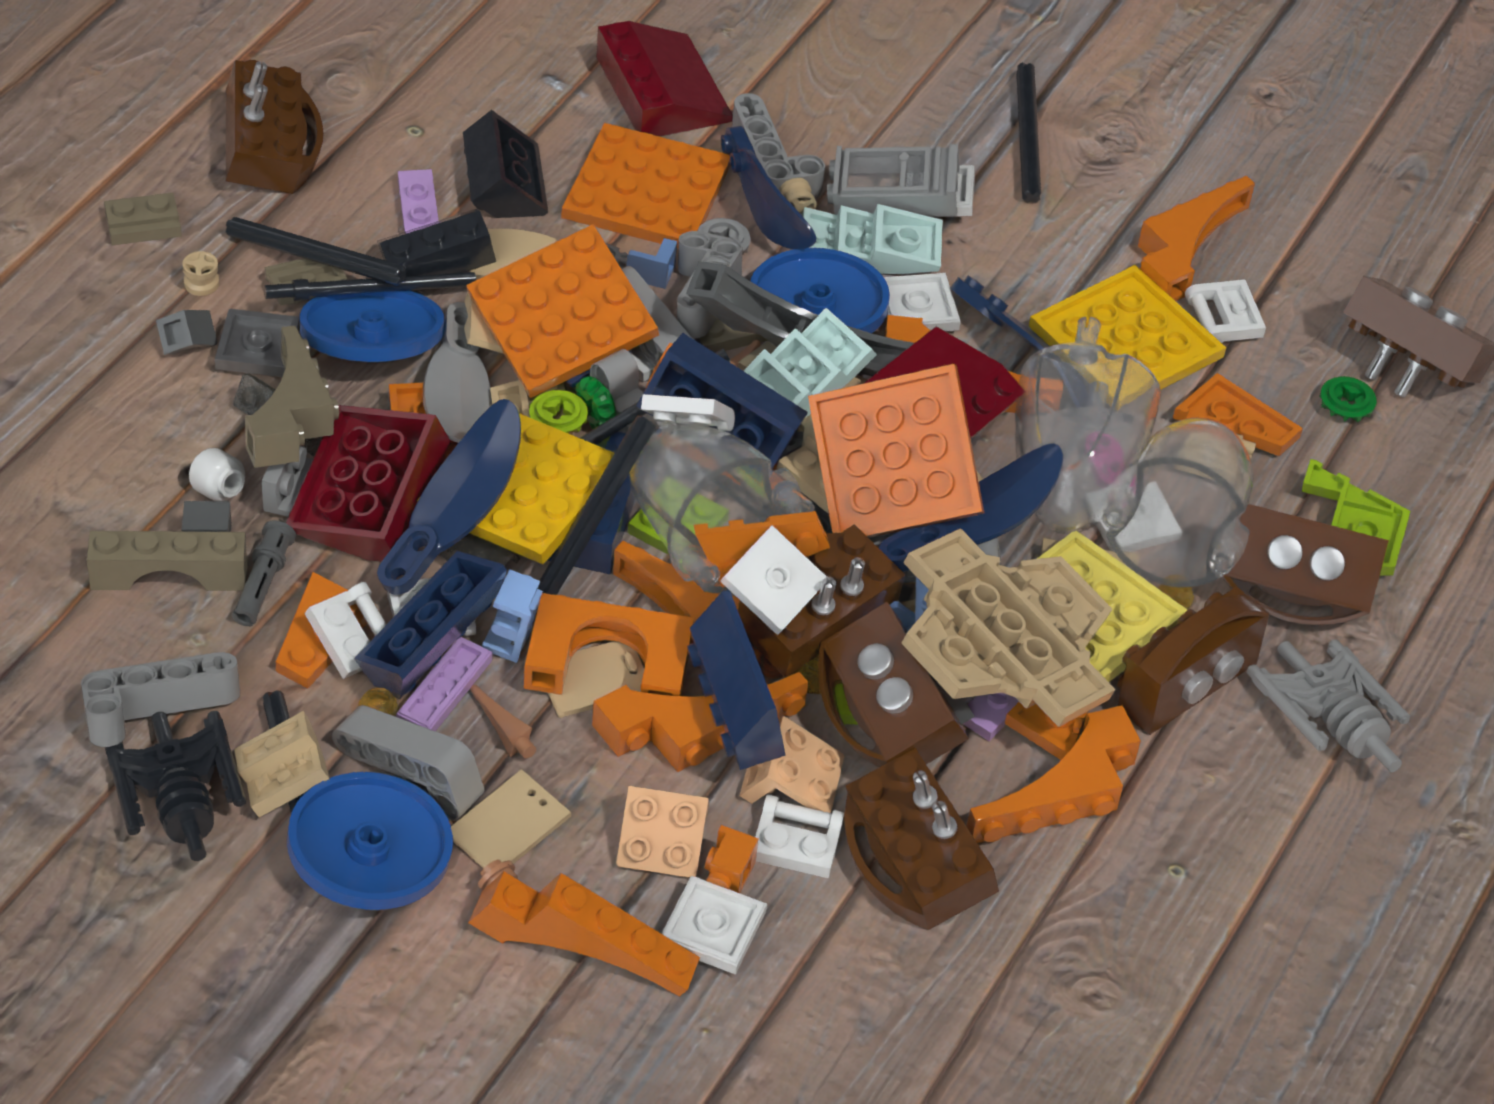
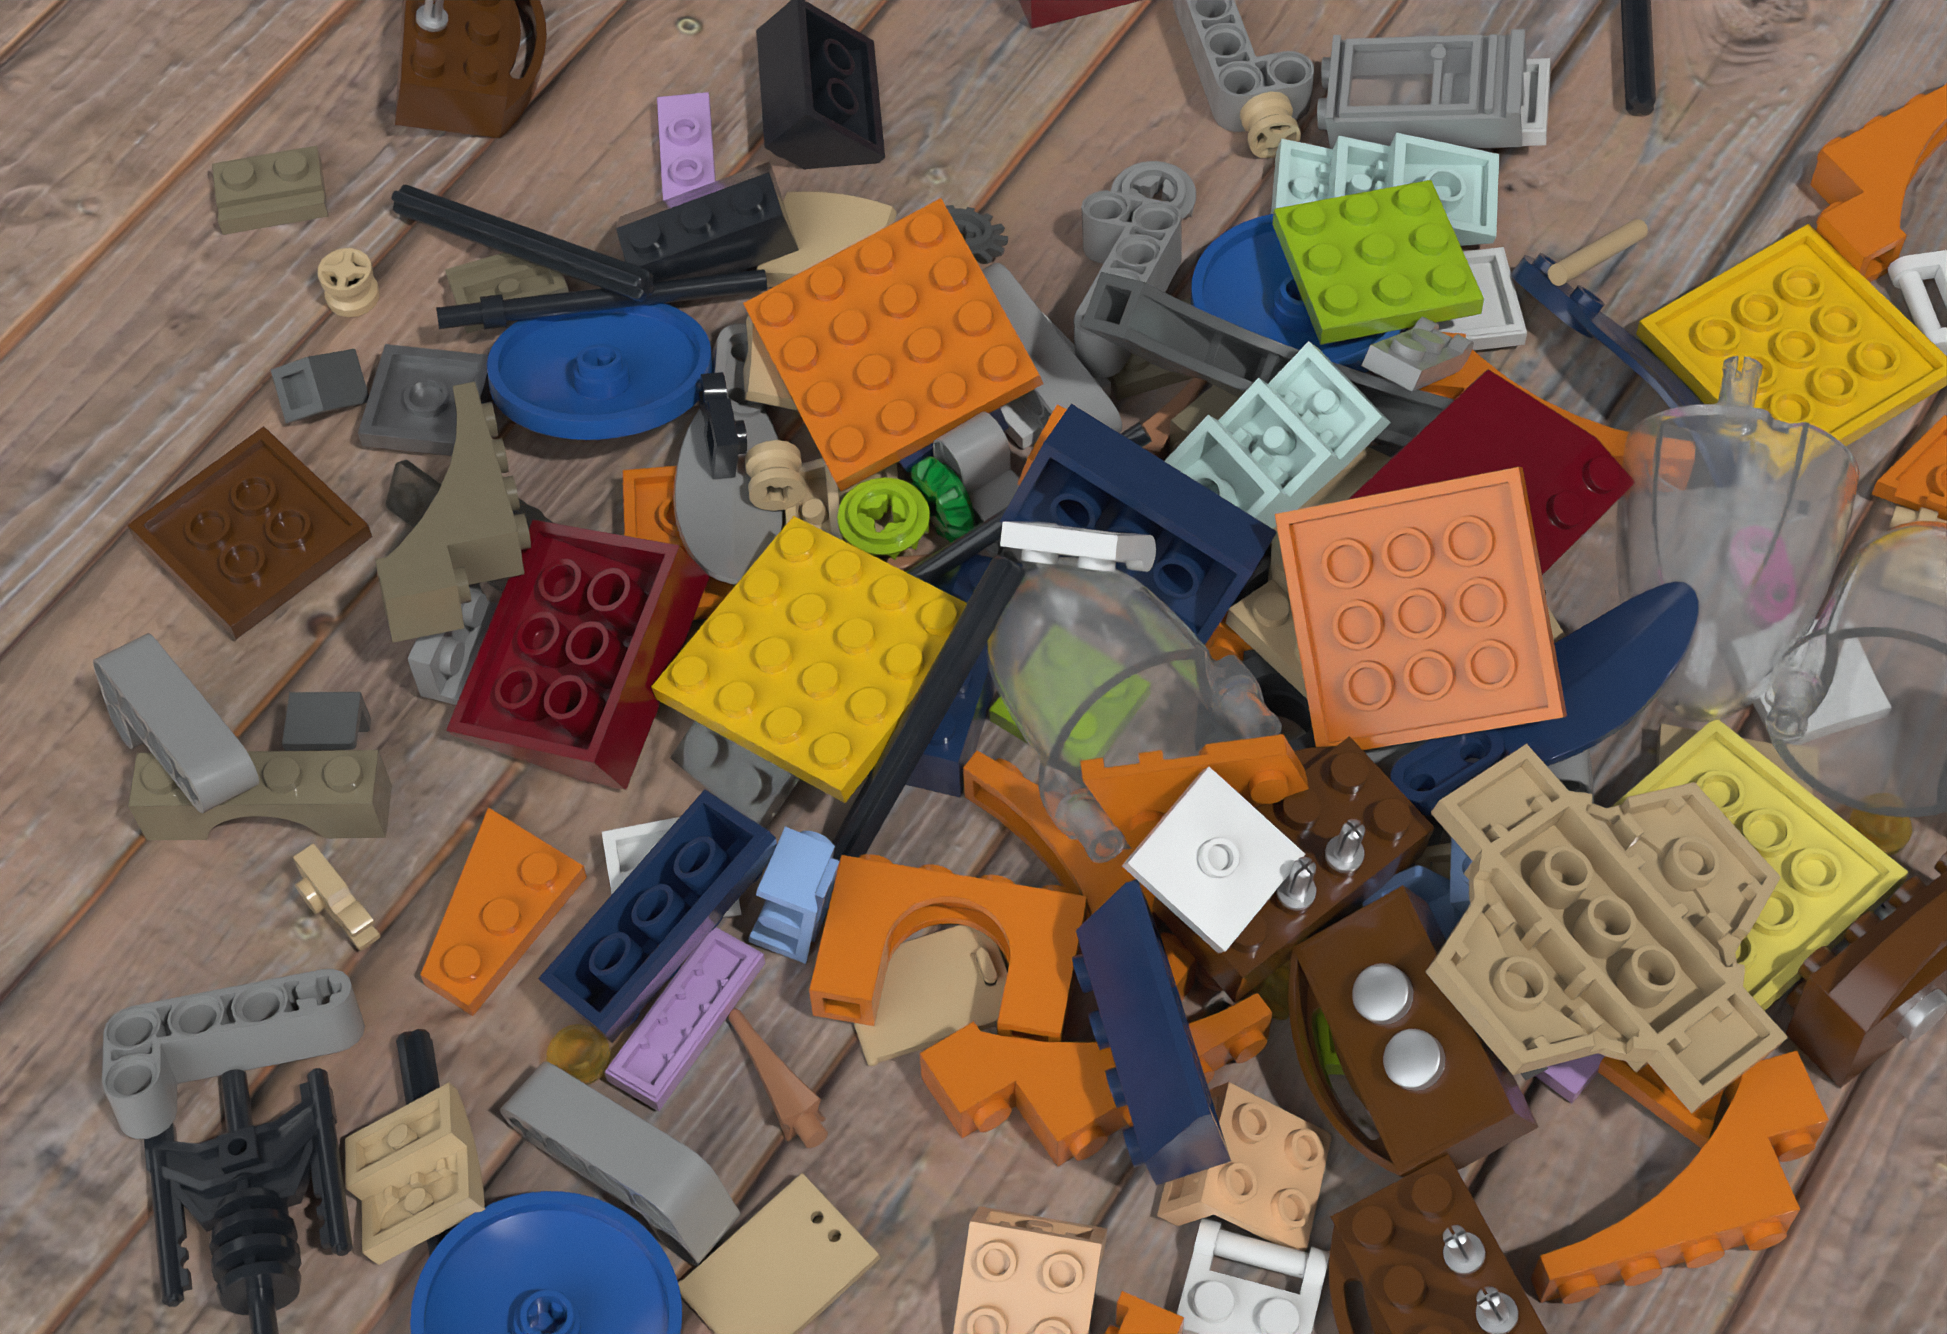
camera: 10 degrees right, 10 degrees up
(100, 499) = (162, 708): none -> light grey beam
(146, 415) = (250, 532): none -> reddish brown plate
(215, 615) = (326, 890): none -> tan plate
(217, 474) = (348, 637): white head -> none
(267, 560) = (419, 787): dark grey pin -> none
(340, 629) = (522, 920): white plate -> none
(454, 361) = (722, 433): none -> black plate
(456, 496) = (708, 688): dark blue plant -> none
(487, 386) = (774, 475): none -> tan wheel
(645, 185) = (1037, 108): orange plate -> none
(655, 269) = (1042, 250): medium blue panel -> none
(770, 209) = (1228, 151): dark blue plant -> none
(866, 274) = (1376, 261): none -> lime plate
(894, 323) = (1418, 355): none -> light grey plate
(1003, 276) = (1597, 252): none -> tan bar

